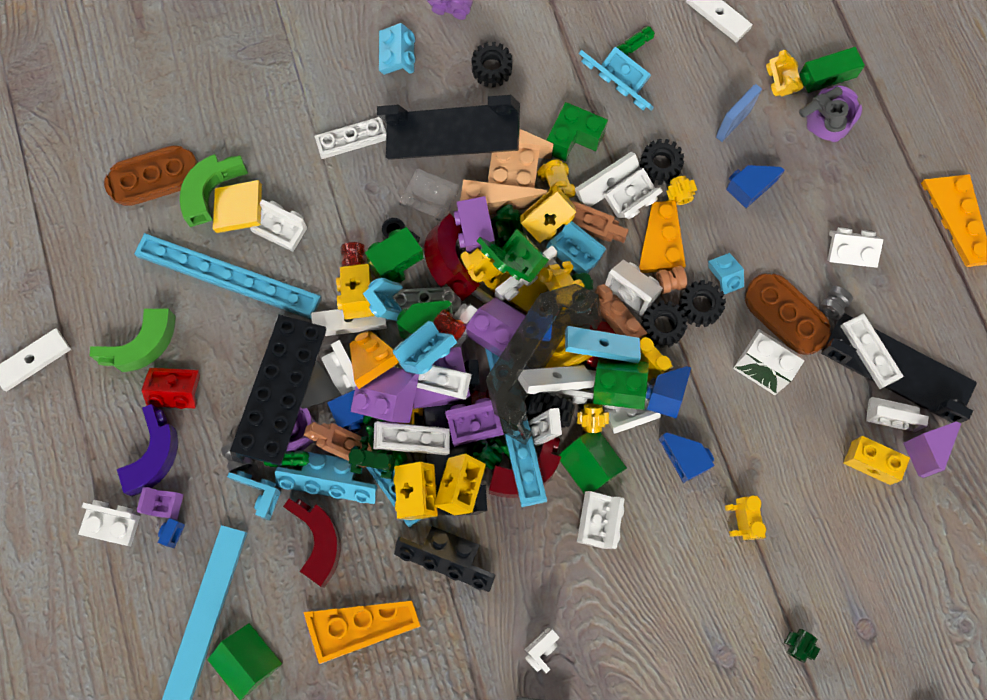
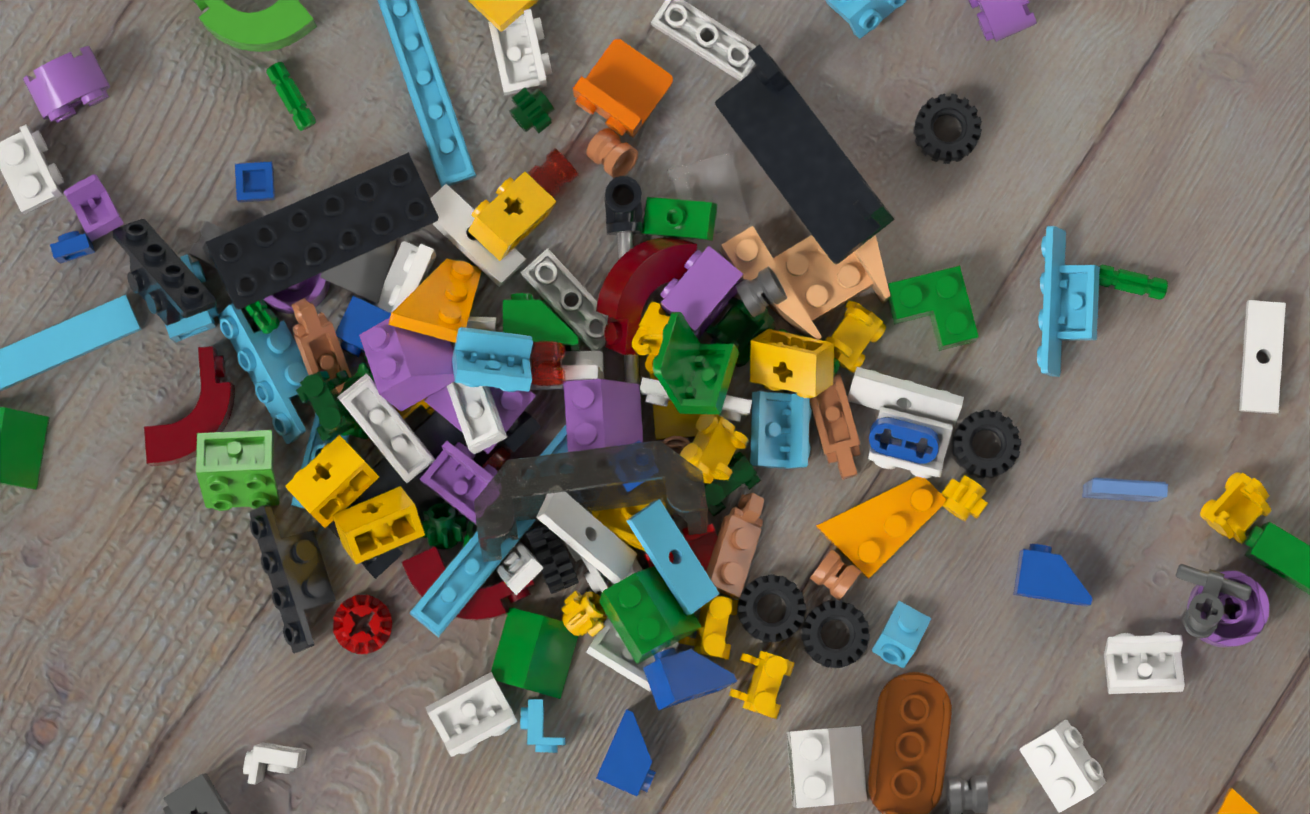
camera: 50 degrees right, 10 degrees up
(83, 463) = (67, 84): none -> medium lavender brick
(157, 459) = (139, 159): dark purple arch -> none
(171, 387) = (229, 100): red bracket -> none
(197, 355) = (291, 96): none -> green axle
(224, 408) = (254, 181): none -> blue plate
(227, 495) = (161, 275): none -> black bracket
(312, 242) = (531, 110): none -> dark green gear
(340, 192) = (622, 88): none -> orange bracket
(353, 628) = (133, 536): light orange wing -> none
(365, 538) = (236, 469): none -> bright green bracket
(368, 220) = (609, 150): none -> nougat wheel
(381, 298) = (520, 260): medium azure bracket -> none
(394, 255) = (586, 226): green brick -> none
(429, 214) = (679, 218): none -> green plate
(495, 550) = (380, 624): none -> red gear
(501, 196) = (761, 291): none -> flat silver wheel
(629, 490) = (533, 720): none -> medium azure bracket
(633, 198) = (901, 448): none -> blue beam
(633, 287) = (787, 535): white slope -> none
(701, 357) = (764, 683): none -> yellow piece
(830, 172) = (1144, 663): none -> white bracket

